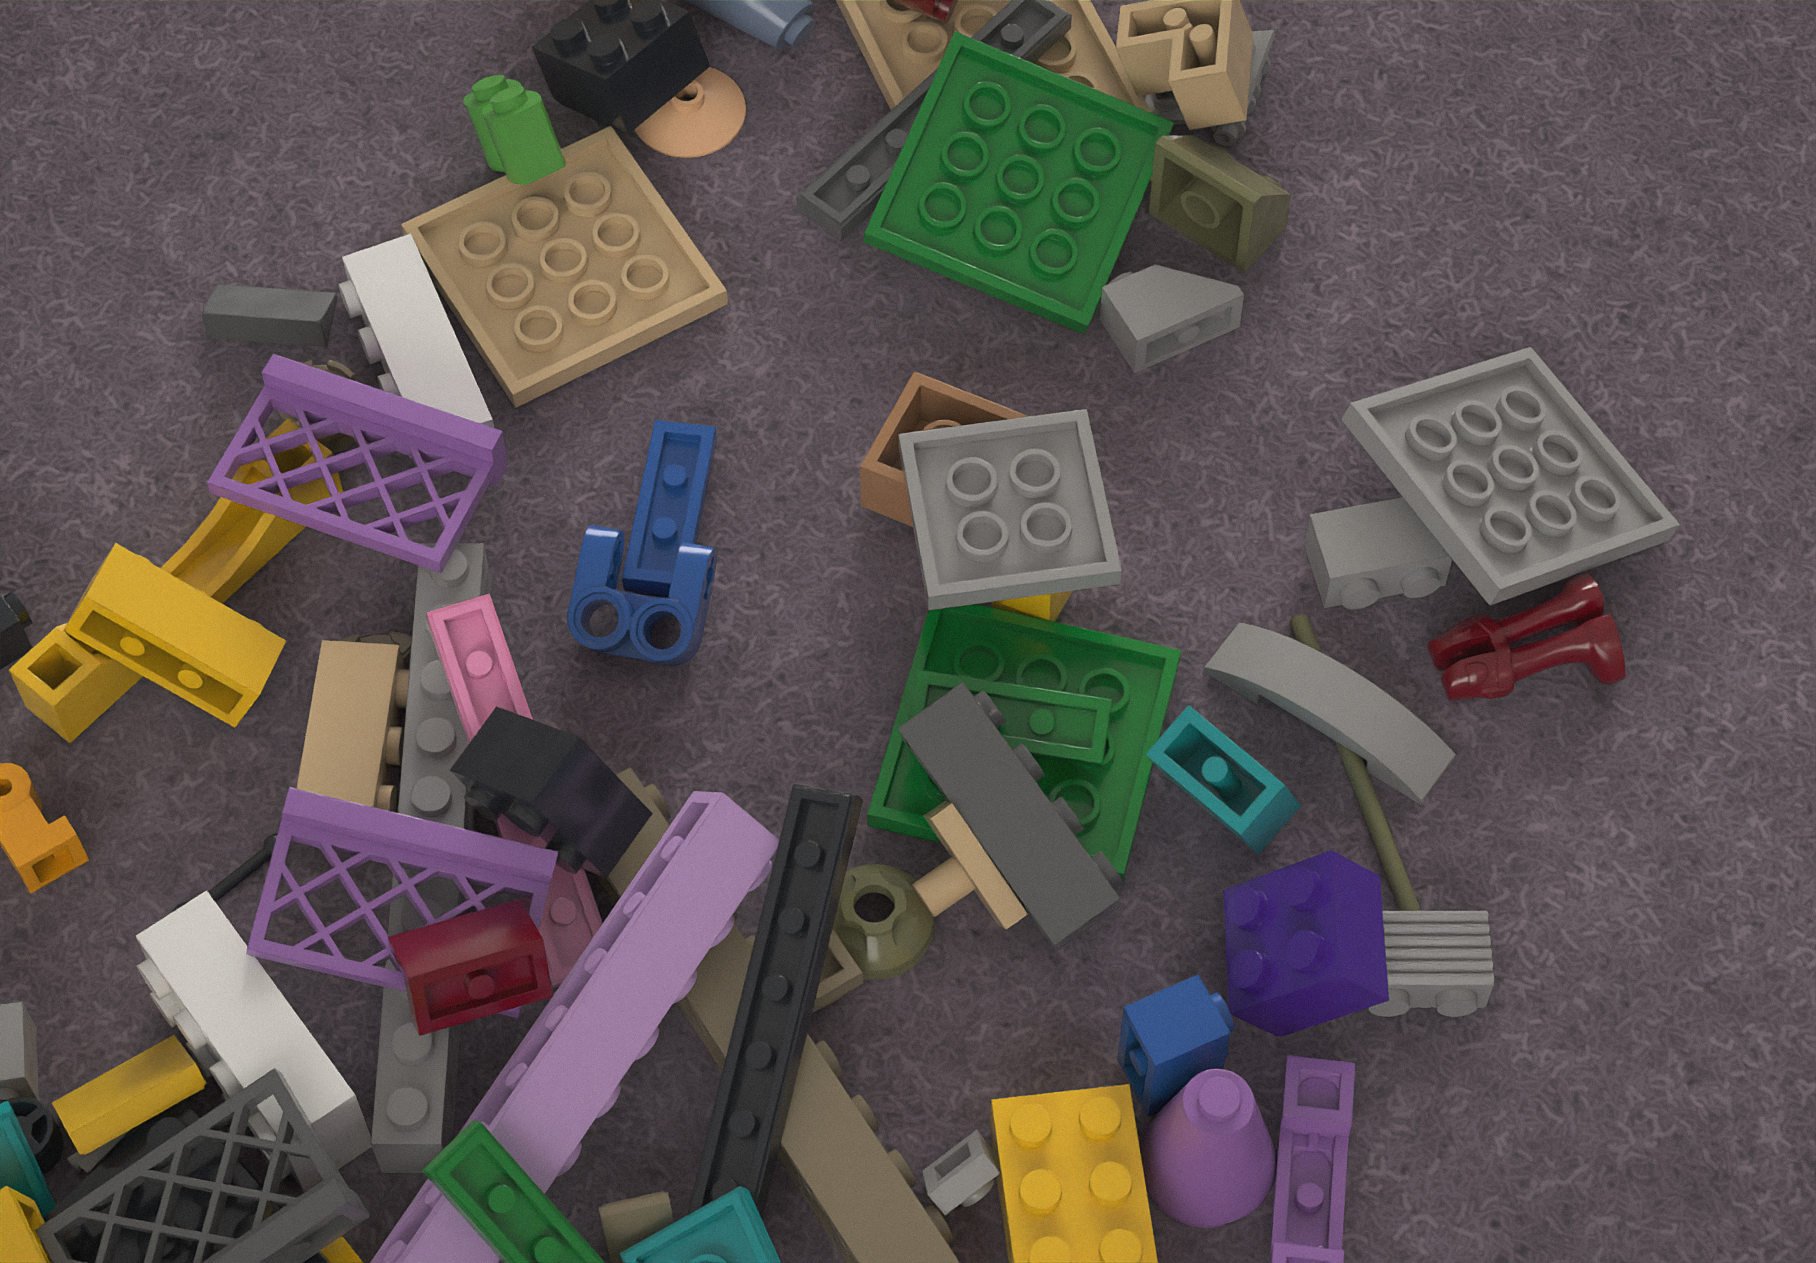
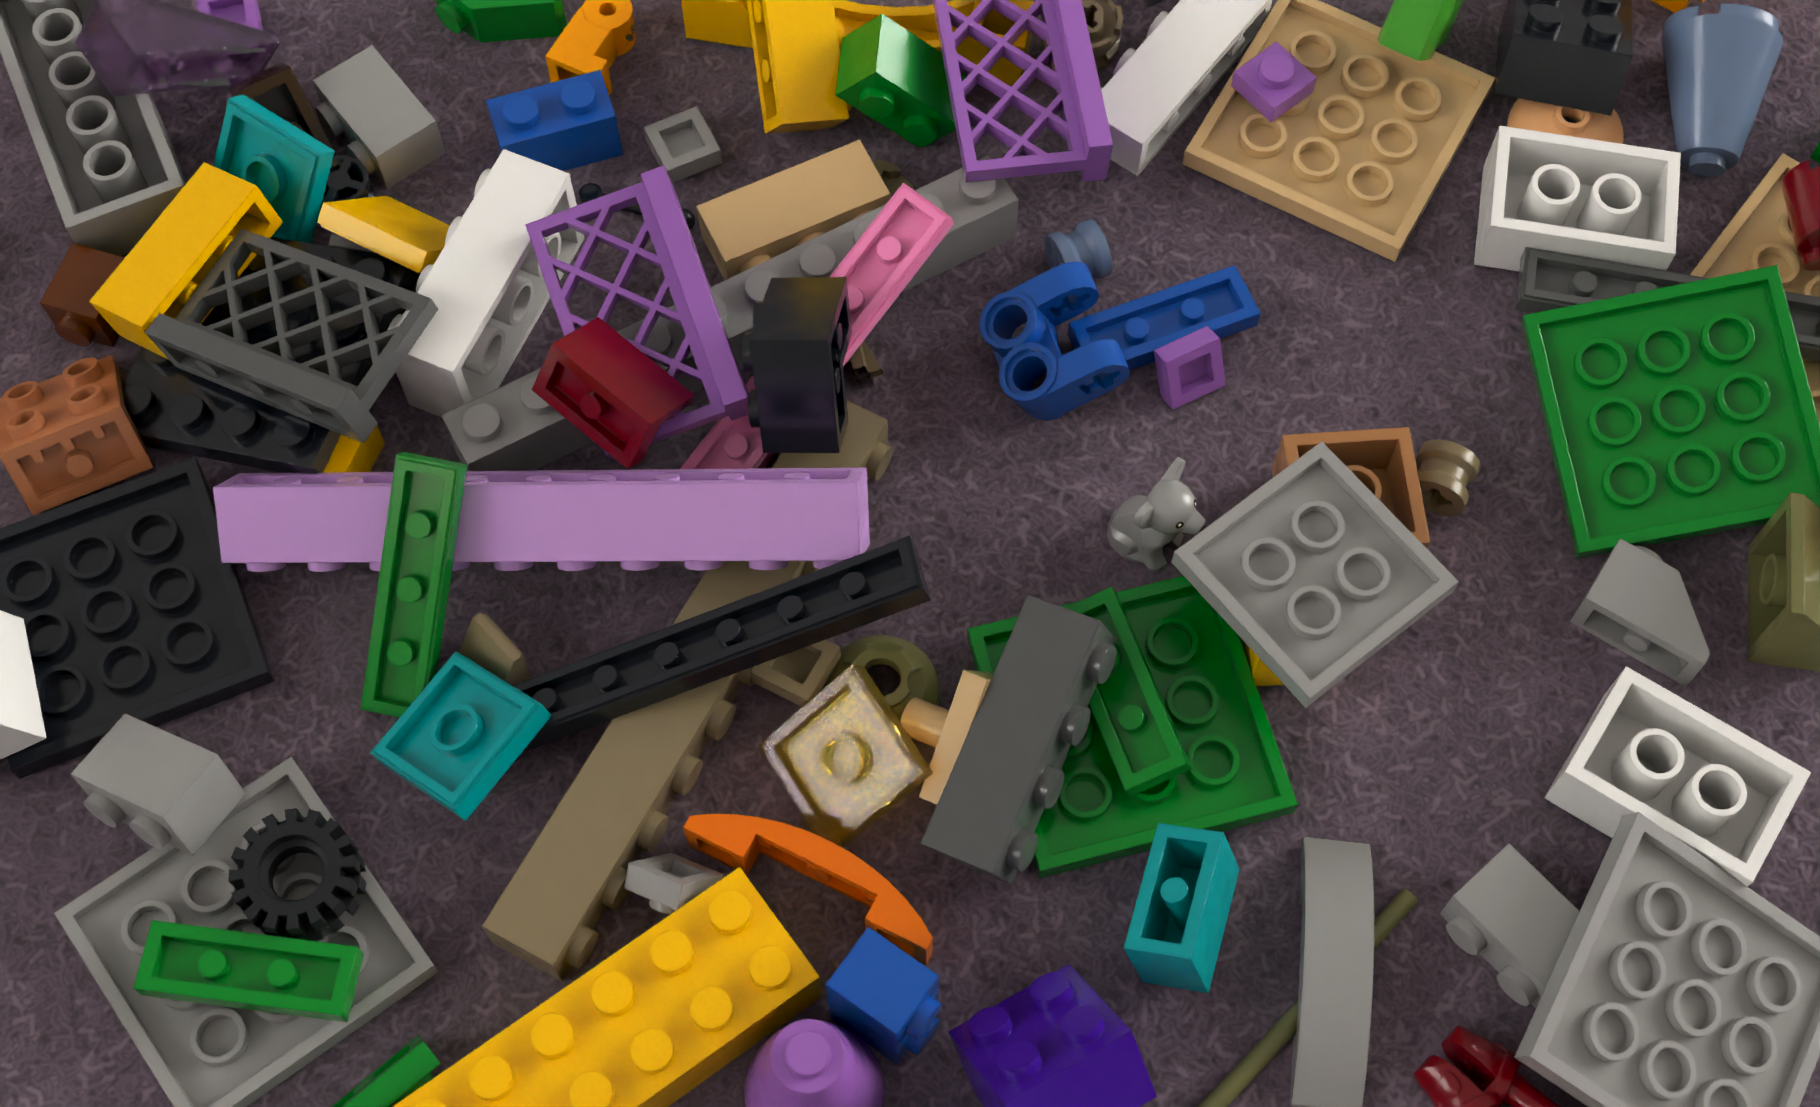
camera: 60 degrees right, 5 degrees up
(99, 903) = (558, 122): none -> blue brick
(197, 803) = (683, 144): none -> light grey plate
(284, 575) = (896, 81): none -> green brick
(497, 287) = (1273, 81): none -> medium lavender plate
(555, 534) = (1082, 245): none -> sand blue wheel
(729, 509) = (1190, 367): none -> medium lavender plate
(776, 139) = (1576, 200): none -> white brick
(858, 627) = (1148, 523): none -> light grey animal
(931, 974) = (845, 757): none -> clear yellow tile
(957, 369) = (1444, 474): none -> dark tan wheel
(1089, 1010) = (741, 838): none -> orange slope
(1305, 369) = (1680, 771): none -> white brick

